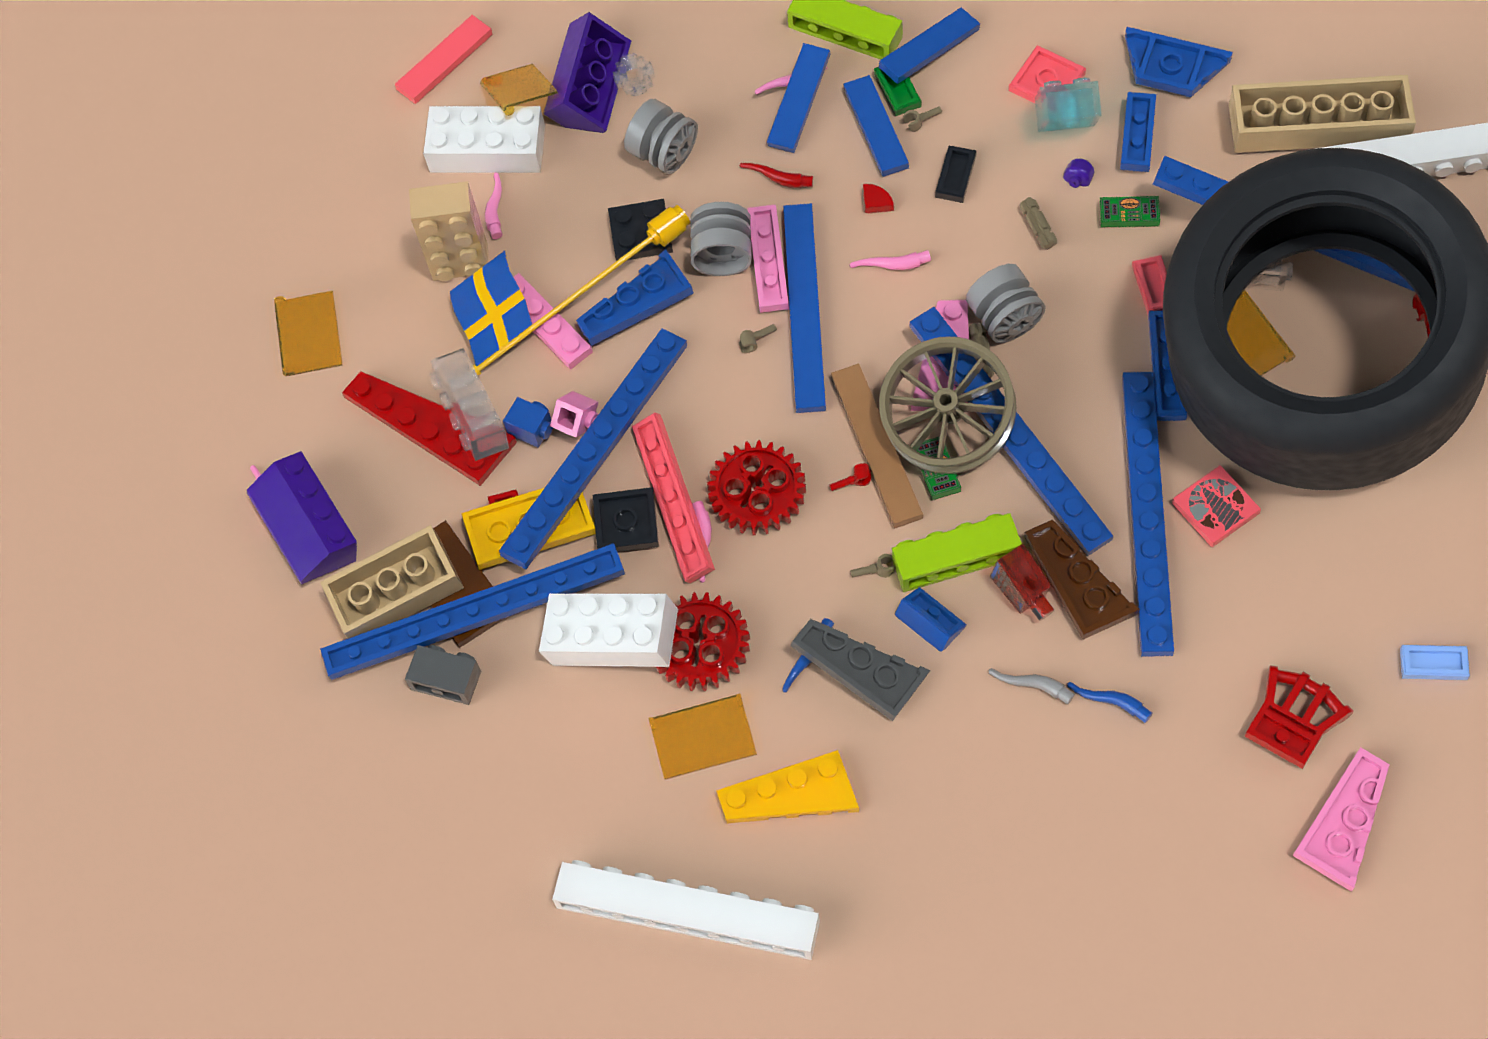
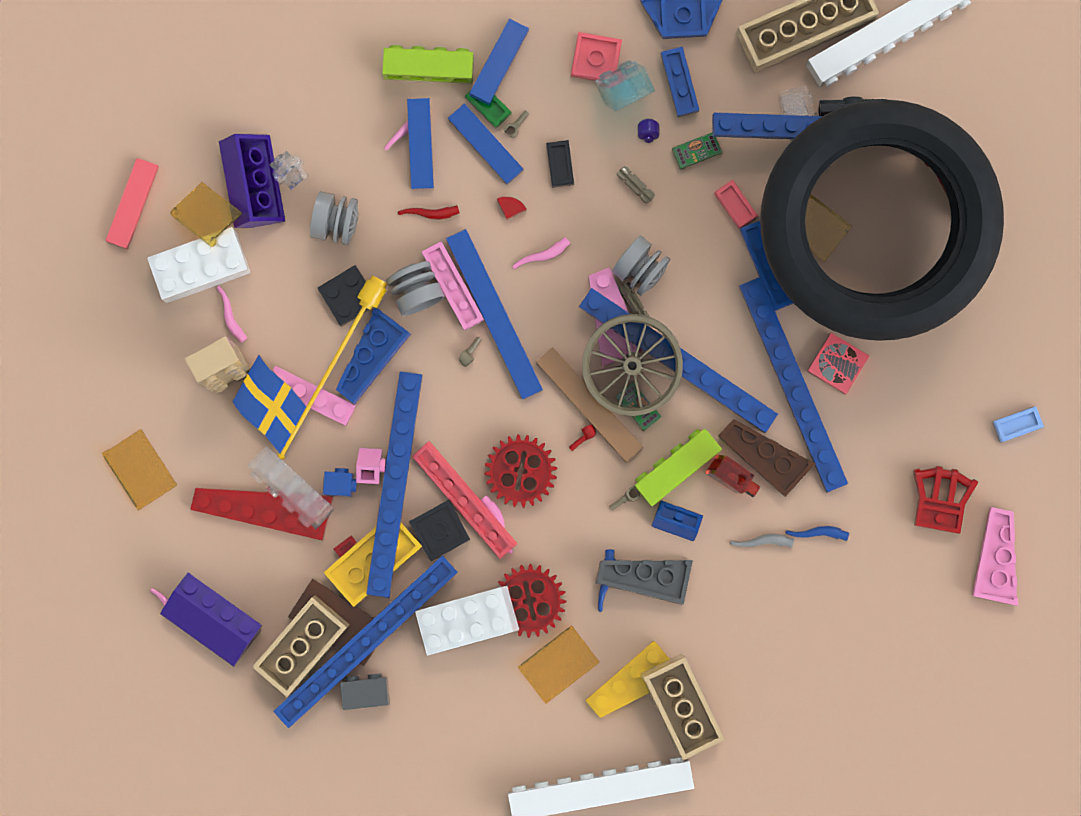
camera: 30 degrees left, 20 degrees up
(838, 839) = (682, 706): none -> tan brick

